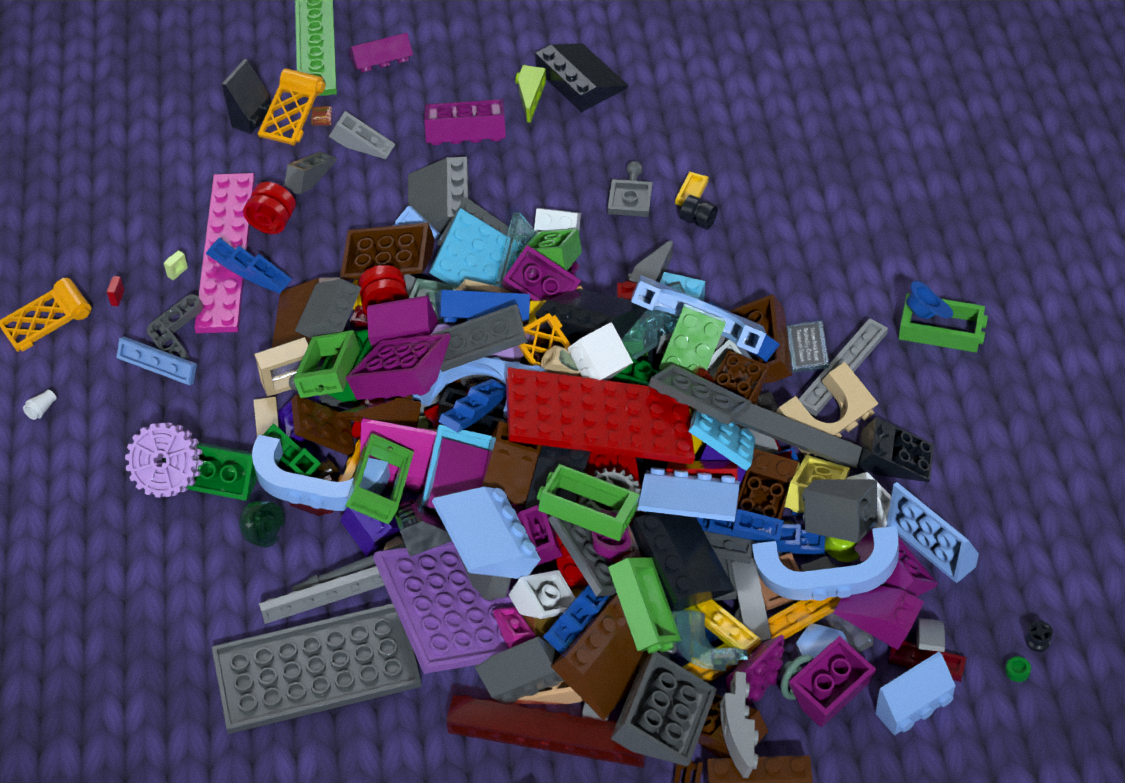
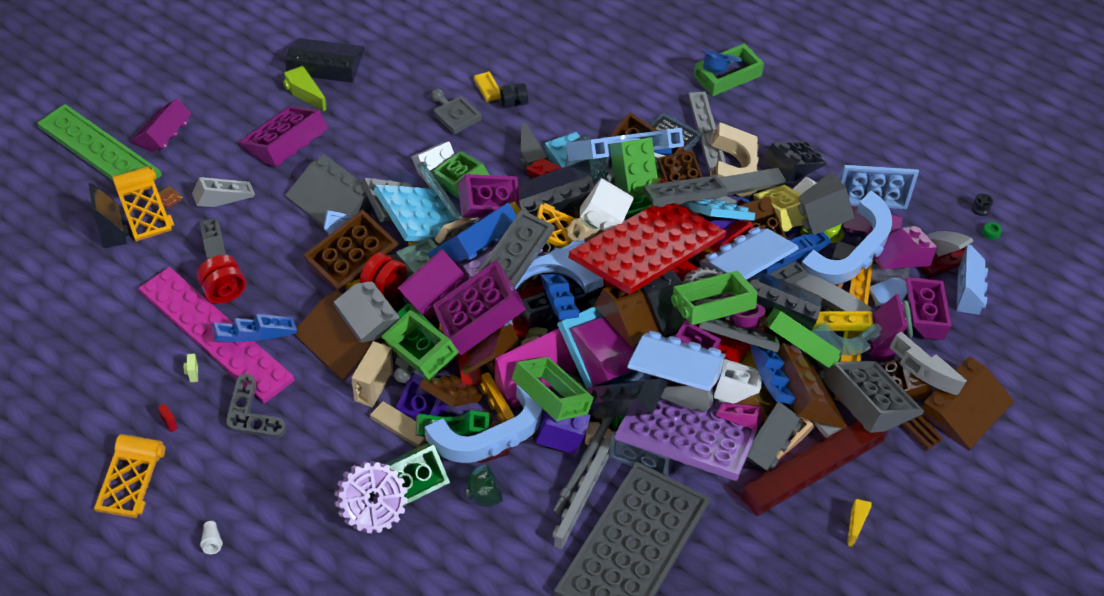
camera: 50 degrees left, 0 degrees up
(156, 360) = (264, 441): medium blue tile -> none

